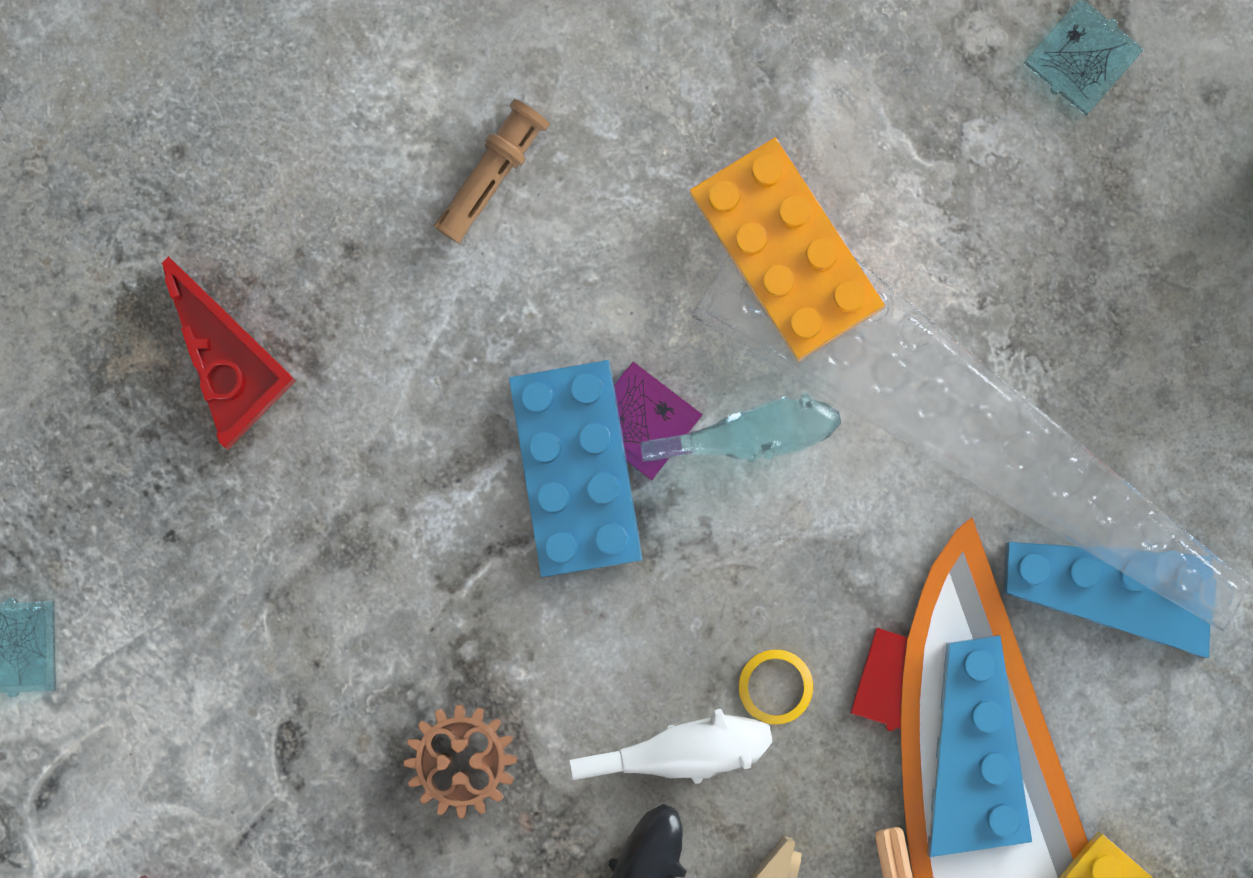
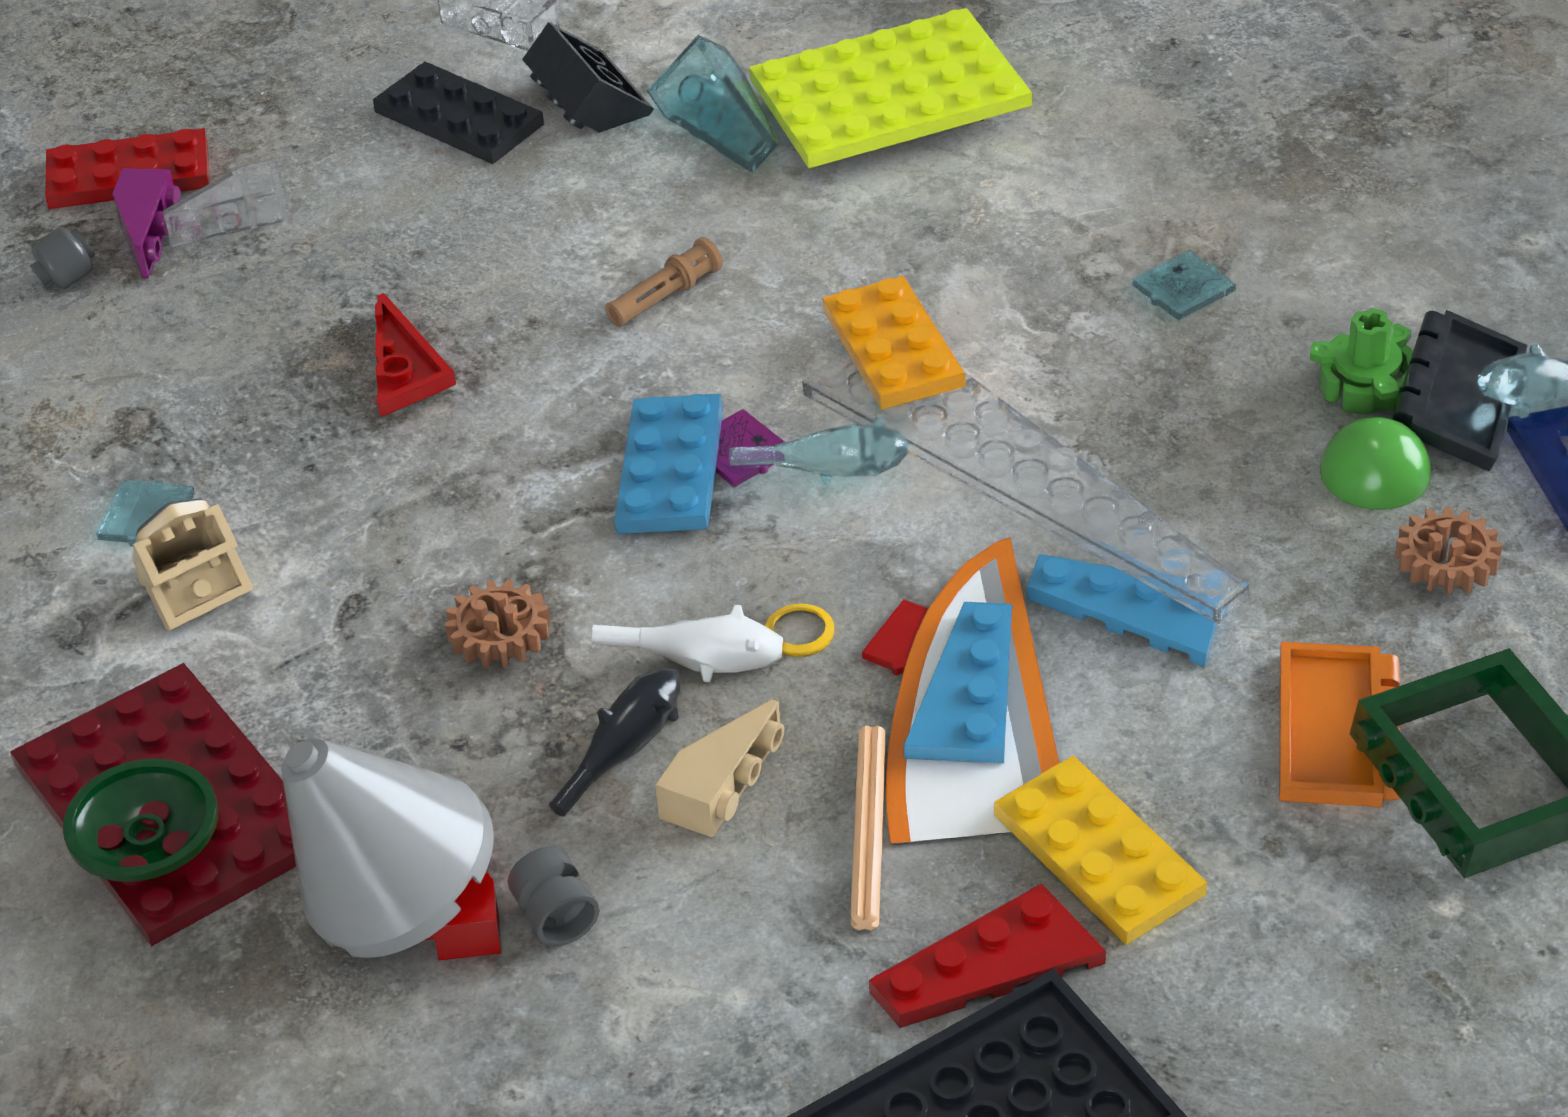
camera: 15 degrees right, 40 degrees down
(99, 757) = (188, 561): none -> tan piece

